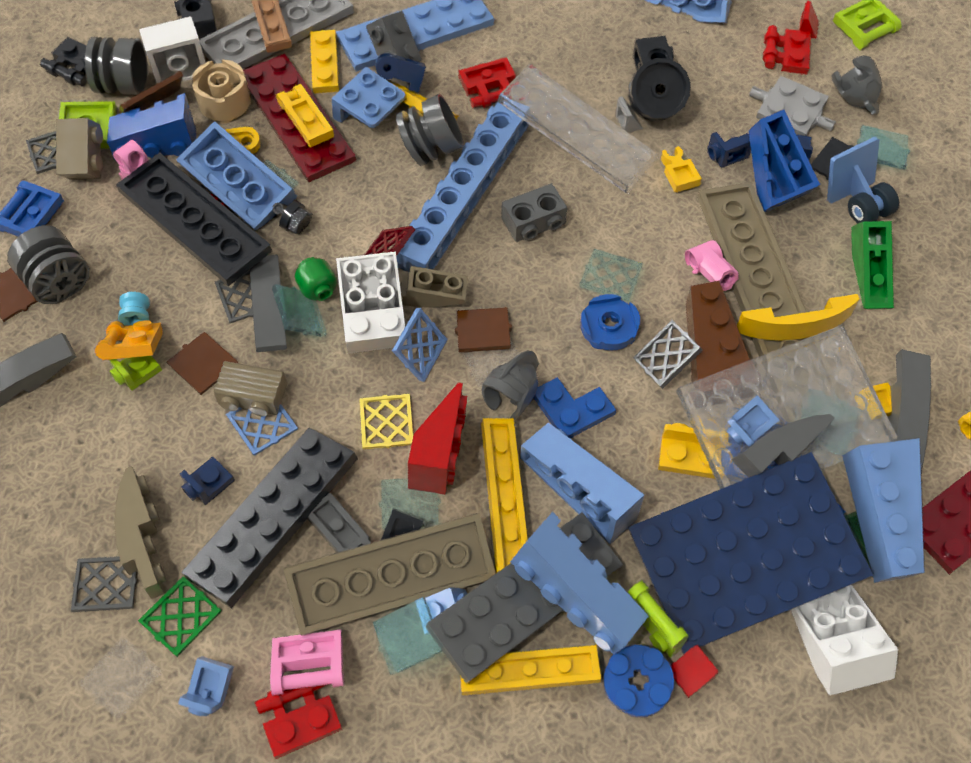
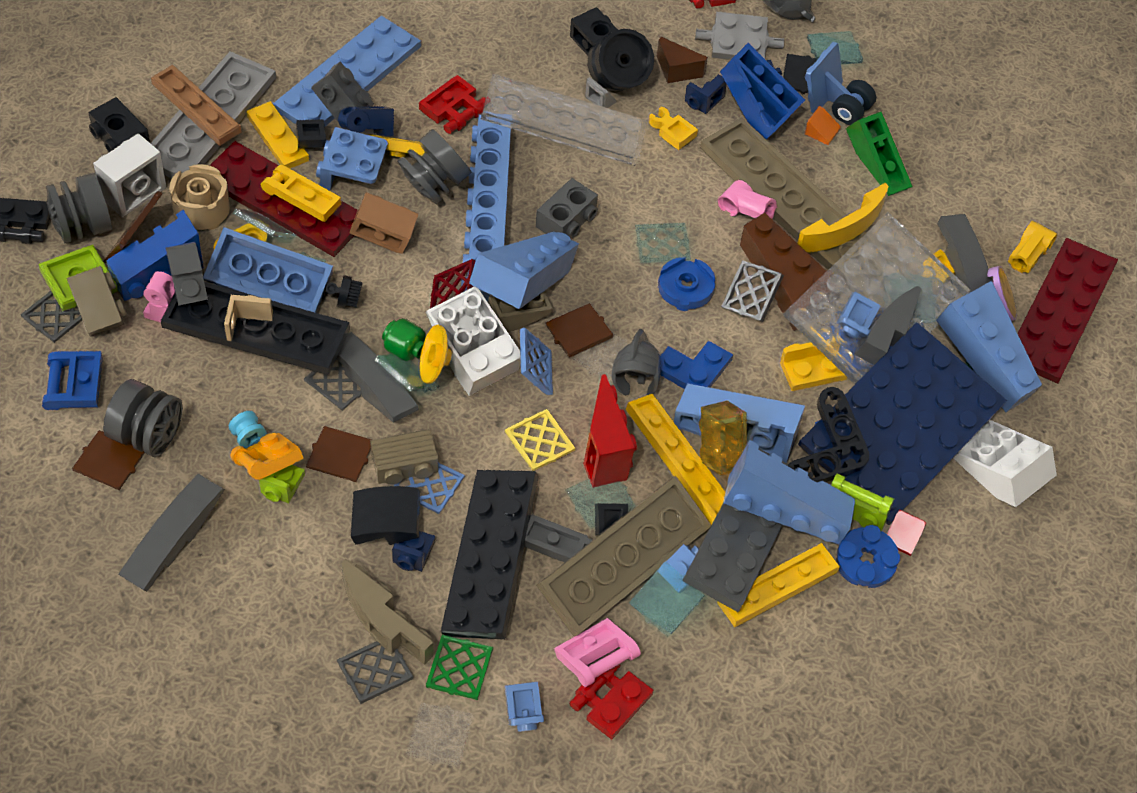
camera: 30 degrees left, 5 degrees down
(152, 144) = (186, 273): none -> dark grey brick
(177, 196) = (246, 307): none -> tan bracket
(199, 437) = (385, 513): none -> black slope
(260, 132) = (264, 224): none -> clear light blue piece
(327, 305) = (434, 354): none -> yellow dish
(347, 66) = (310, 133): none -> black plate
(360, 166) = (384, 223): none -> medium nougat brick
(452, 252) = (524, 268): none -> medium blue wedge
(546, 490) = (722, 435): none -> clear yellow brick
(666, 550) = (841, 444): none -> black beam
(720, 111) = (679, 62): none -> reddish brown slope
(829, 217) = (822, 126): none -> orange slope
(932, 454) = (1004, 290): none -> tile

